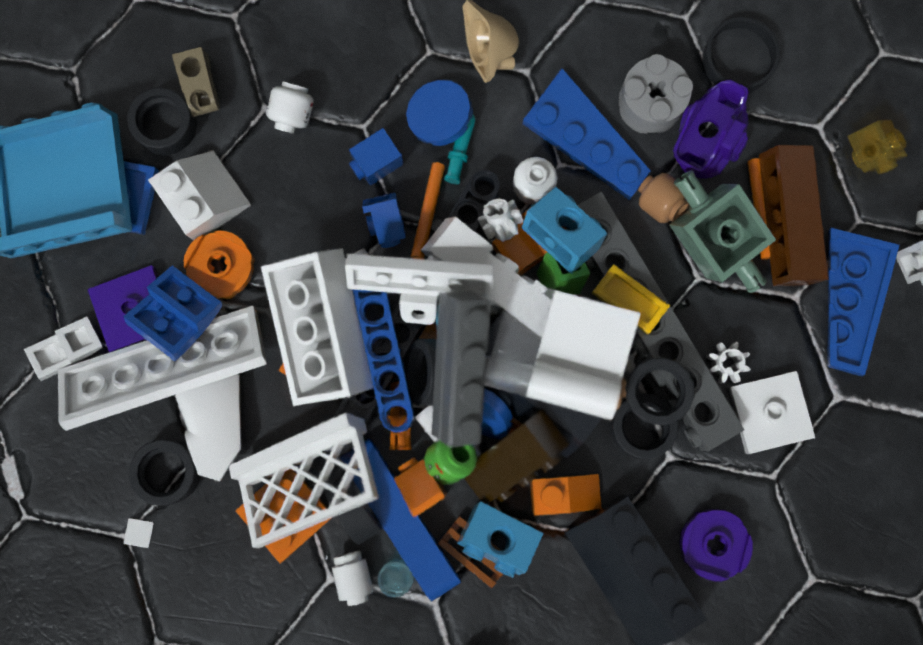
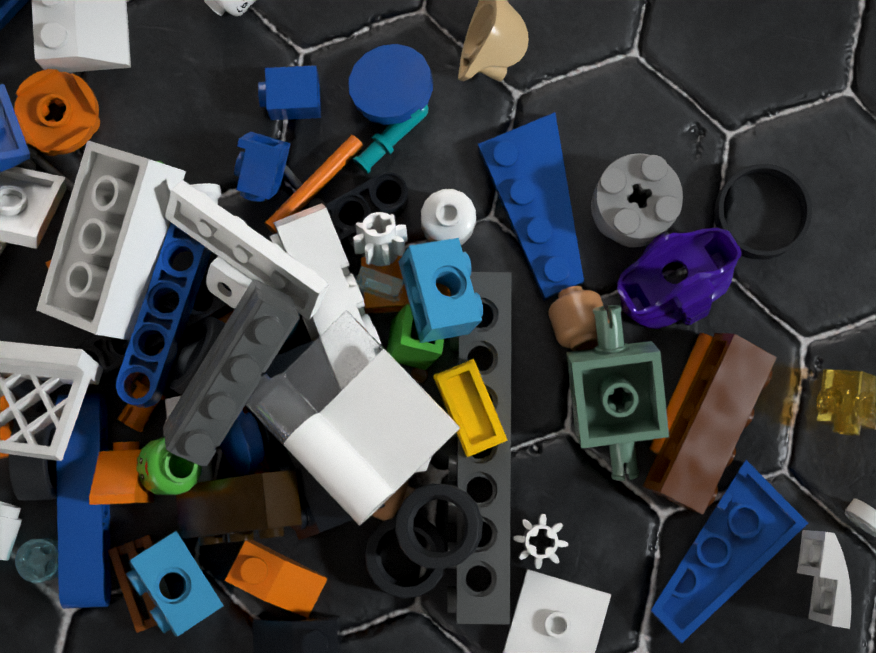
camera: 25 degrees right, 0 degrees up
(521, 249) = (380, 284): none -> clear light blue tile

